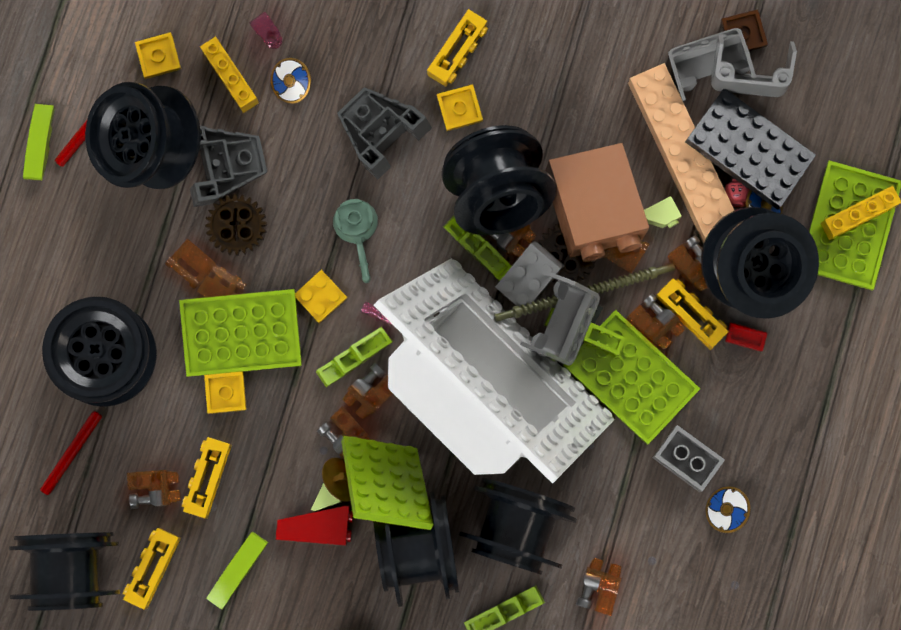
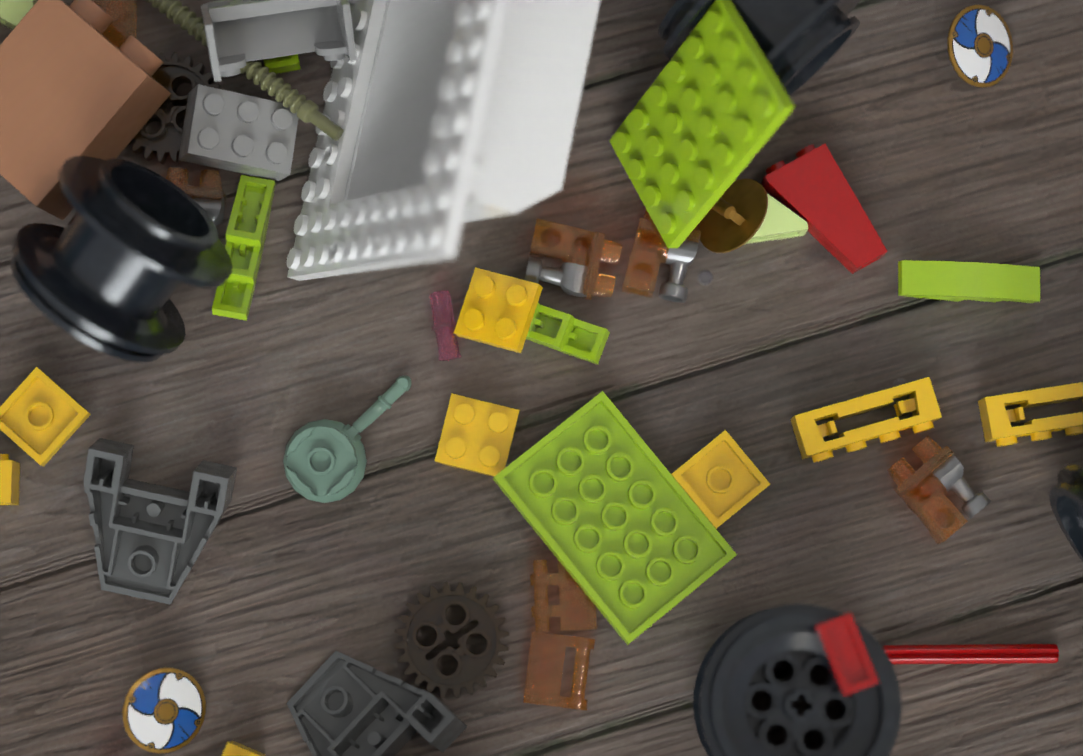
camera: 130 degrees left, 0 degrees up
(101, 381) = (846, 654): none -> red tile
(369, 341) = (498, 310): none -> yellow plate

